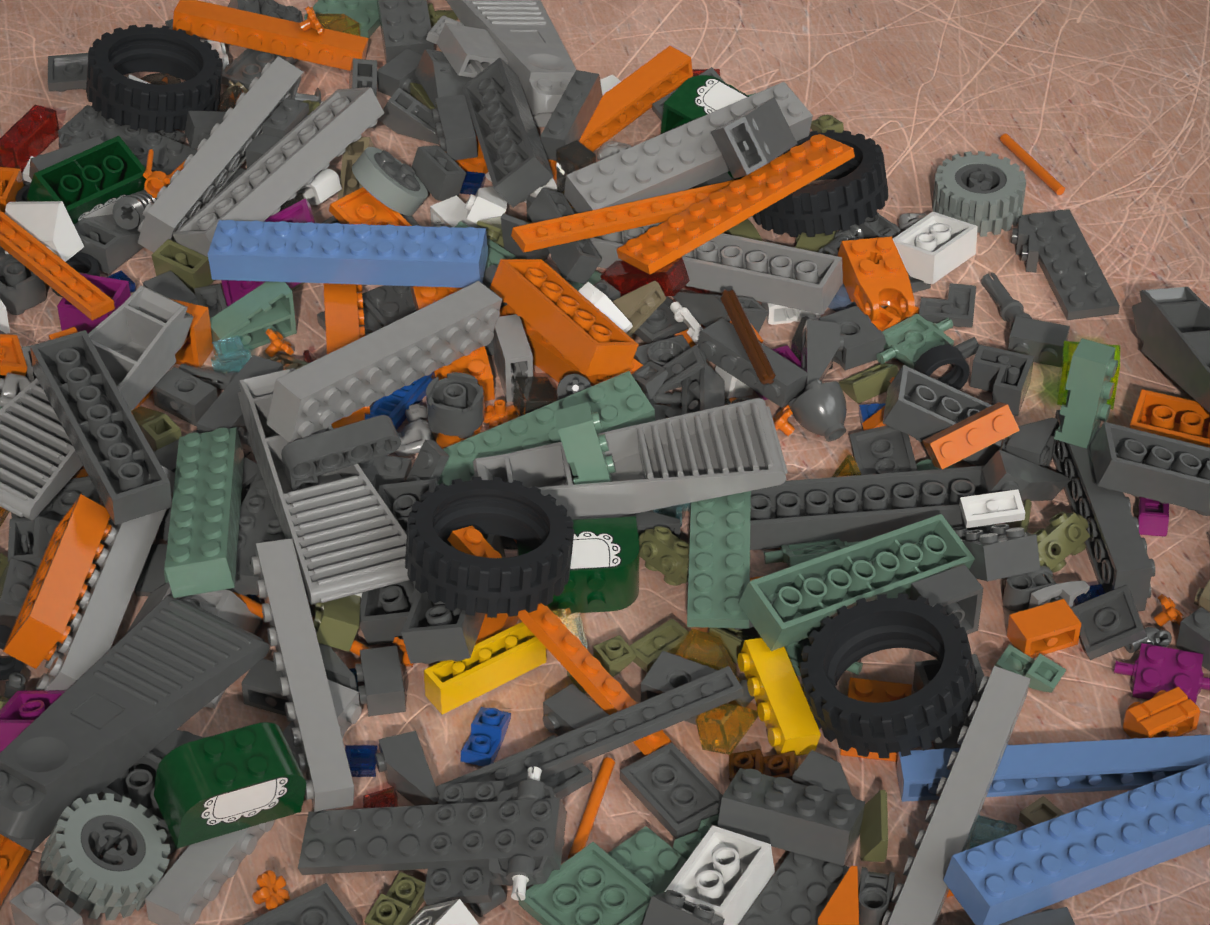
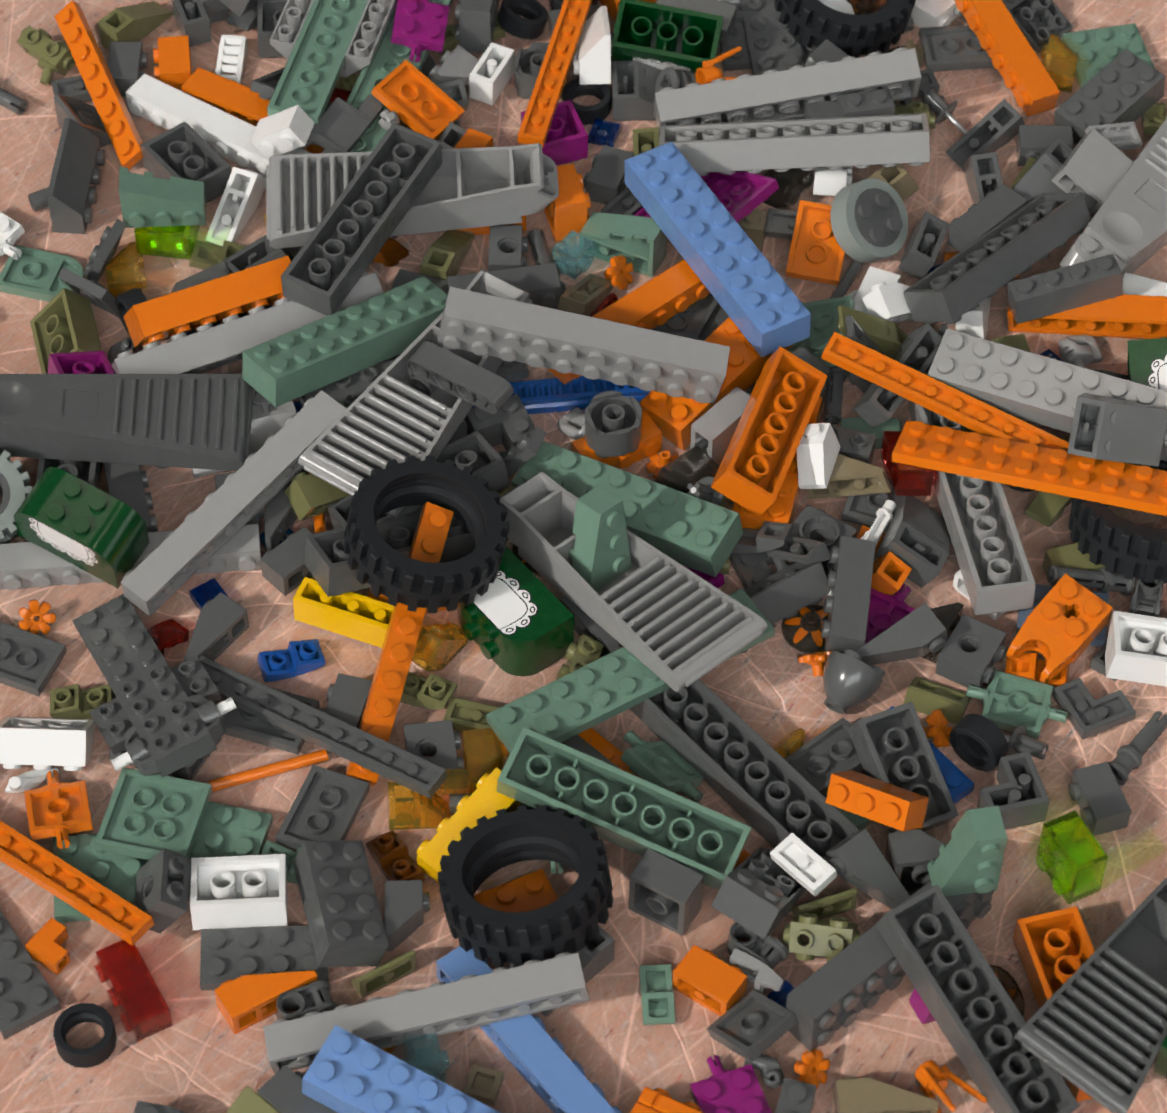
camera: 55 degrees right, 10 degrees up
(311, 21) = (1026, 42): orange plant -> none
(570, 159) = (995, 323): clear smoke slope -> none
(748, 337) = (860, 572): reddish brown axle -> none

